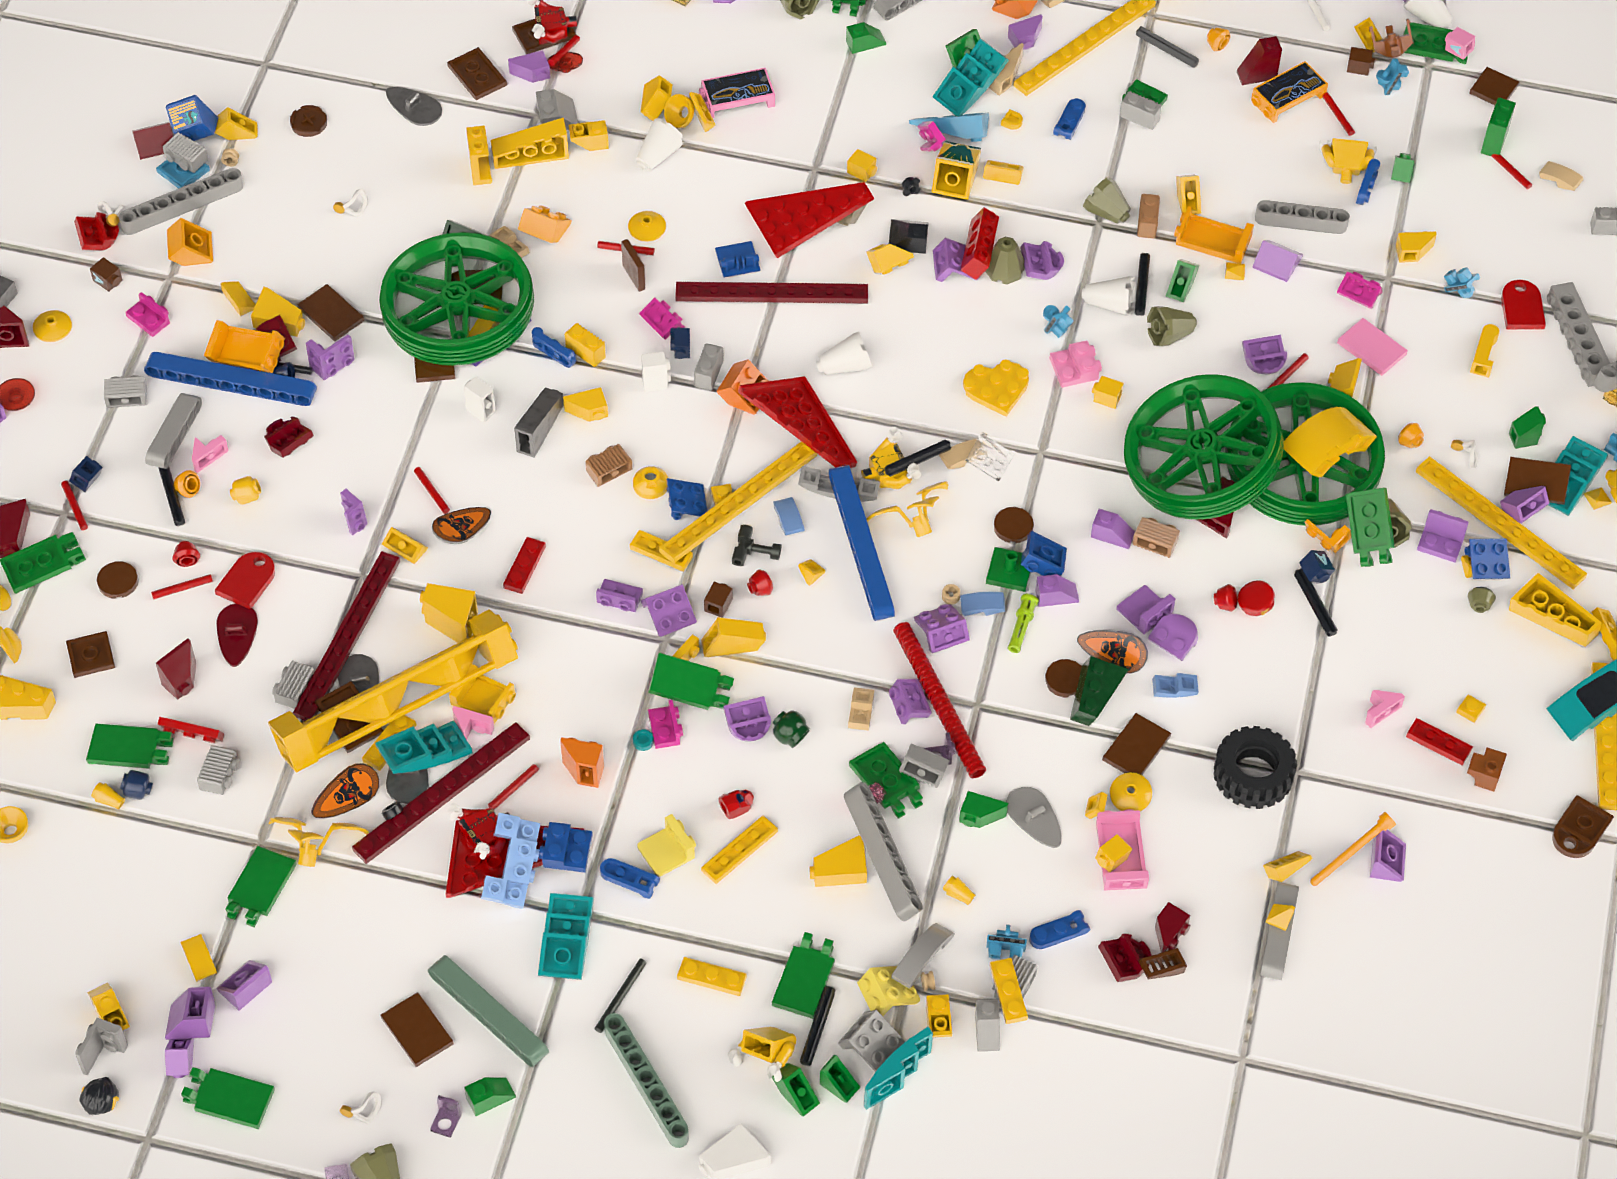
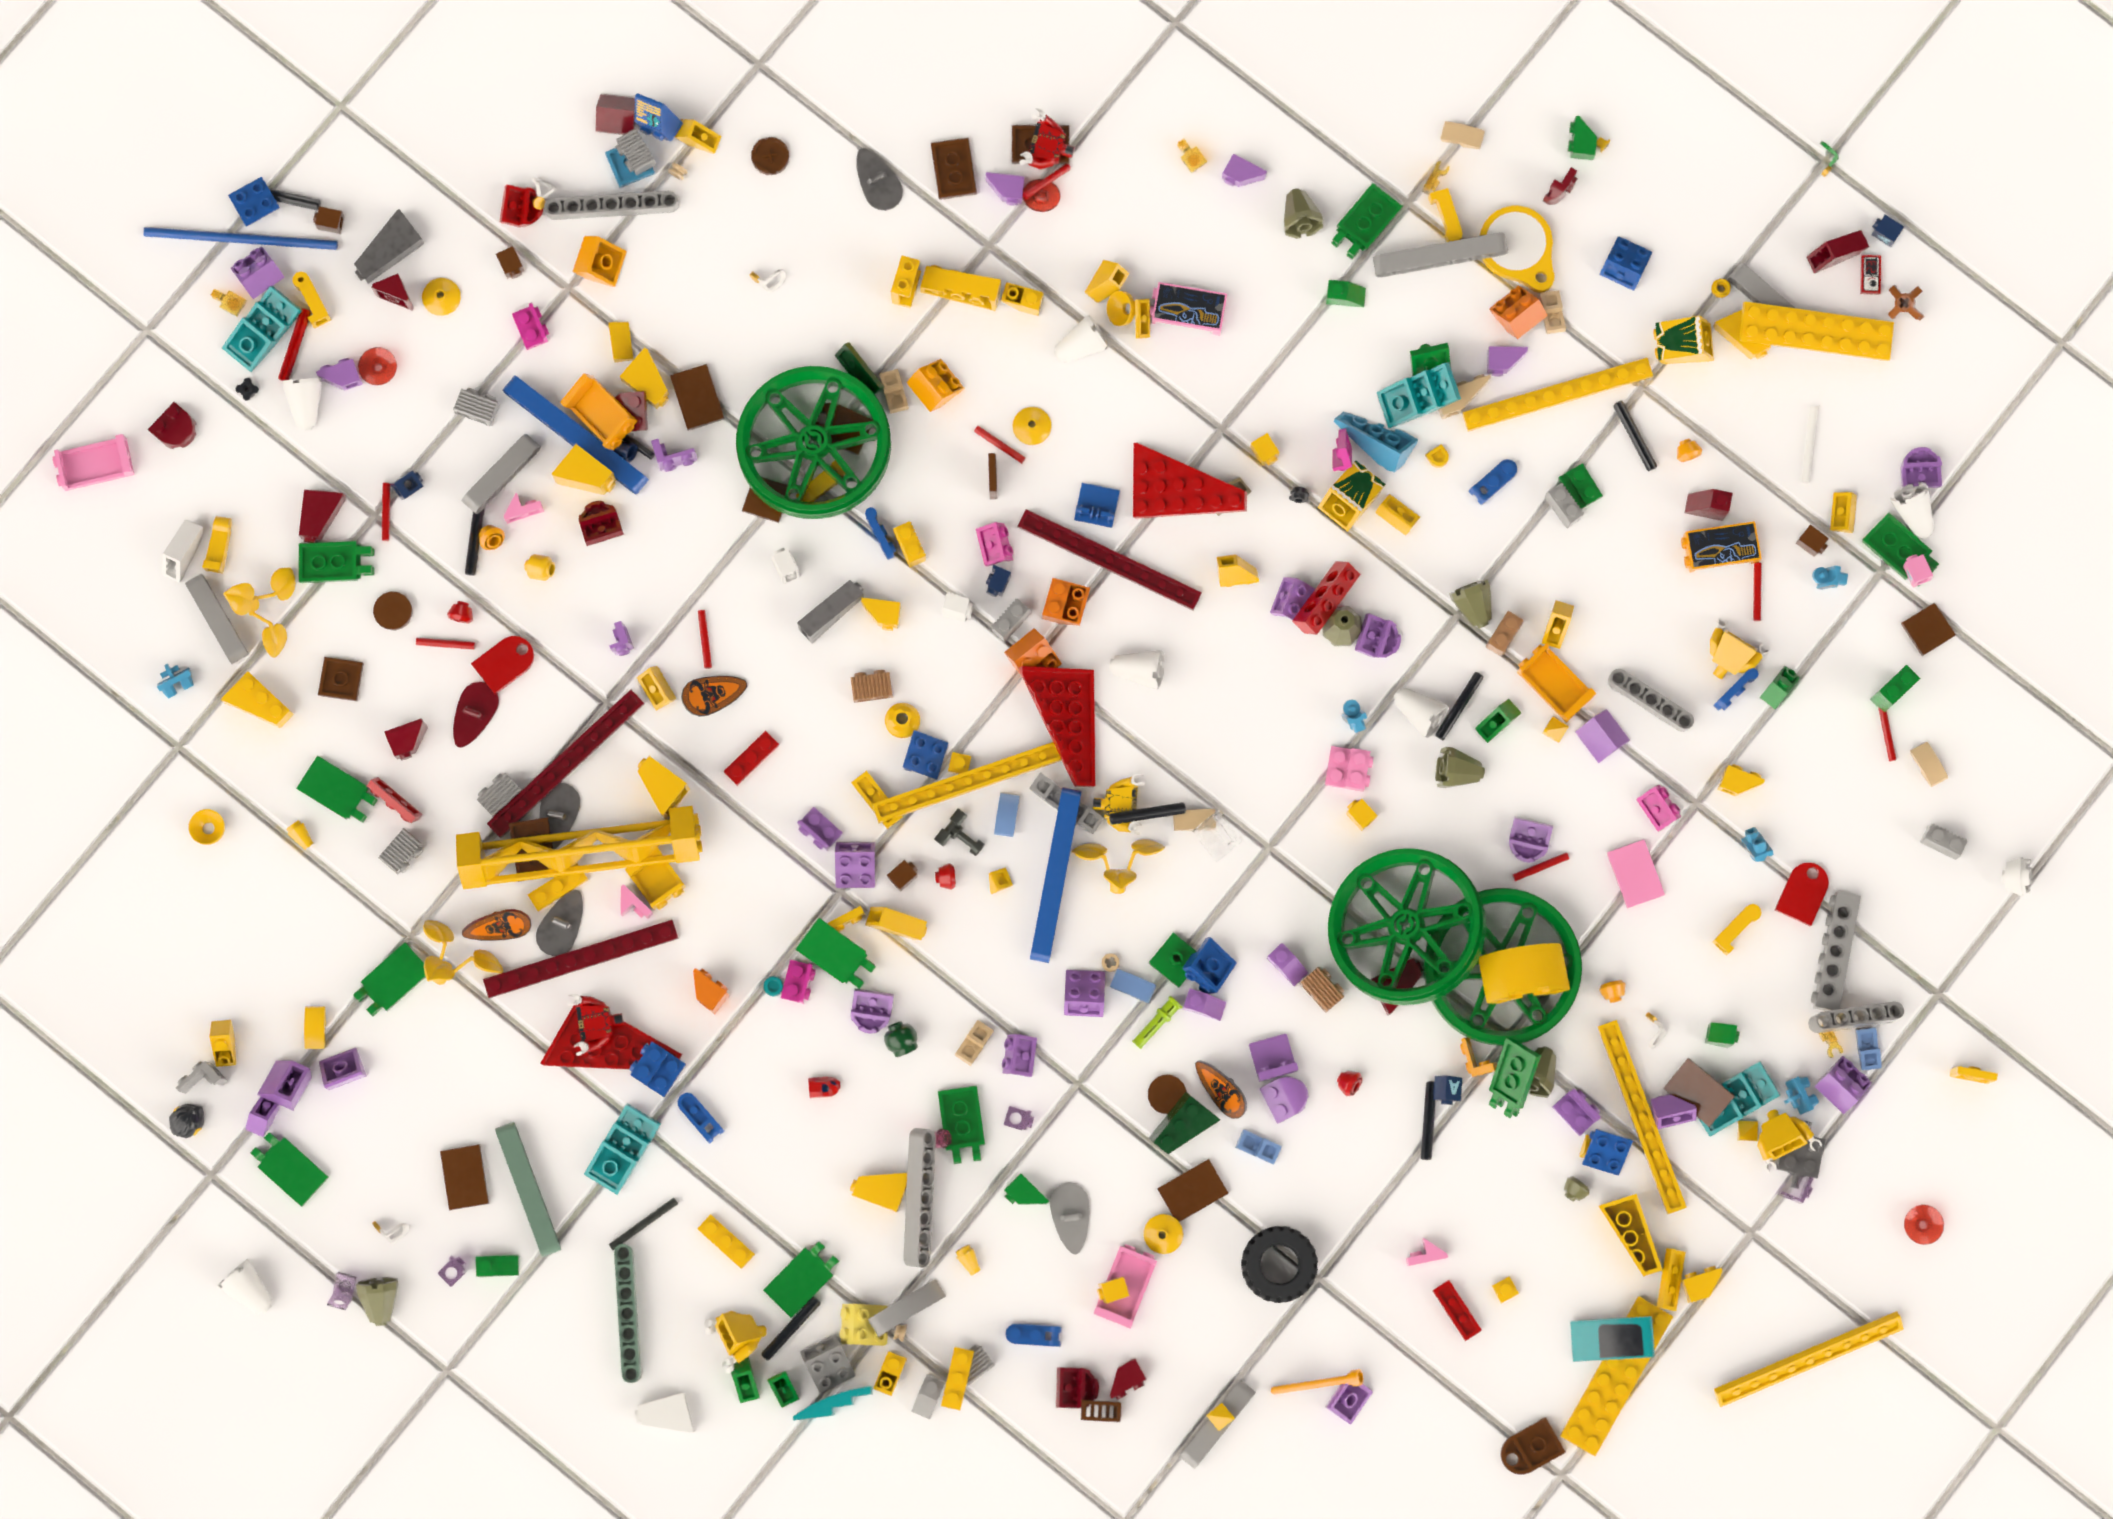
camera: 25 degrees right, 25 degrees up
(136, 784) = (327, 835): dark blue head -> none
(253, 398) = (584, 473): none -> yellow slope
(392, 810) = (530, 960): black tile -> none
(423, 748) = (580, 913): teal slope -> none
(513, 787) = (642, 982): red bar -> none
(519, 861) = (610, 1067): light blue bracket -> none
(555, 105) = (1006, 253): light grey slope -> none
(668, 847) = (742, 1105): light yellow bracket -> none
(739, 849) = (805, 1132): yellow tile -> none
(750, 335) = (1065, 602): none -> orange slope
(909, 235) = (1270, 549): black slope -> none
(924, 765) = (997, 1129): light grey brick -> none
(939, 699) = (1045, 1066): red piece -> none
(997, 387) = (1265, 759): yellow plate -> none
(1006, 941) = (973, 1325): dark azure hips -> none
(1013, 524) = (1203, 915): reddish brown tile -> none
(1095, 805) = (1125, 1234): yellow tile -> none
(1256, 598) = (1376, 1094): red piece -> none
(1285, 866) = (1247, 1364): yellow slope -> none
(1345, 376) = (1580, 908): yellow slope -> none
(1392, 44) = (1855, 537): dark orange piece -> none
(1487, 768) = (1481, 1359): dark orange brick -> none

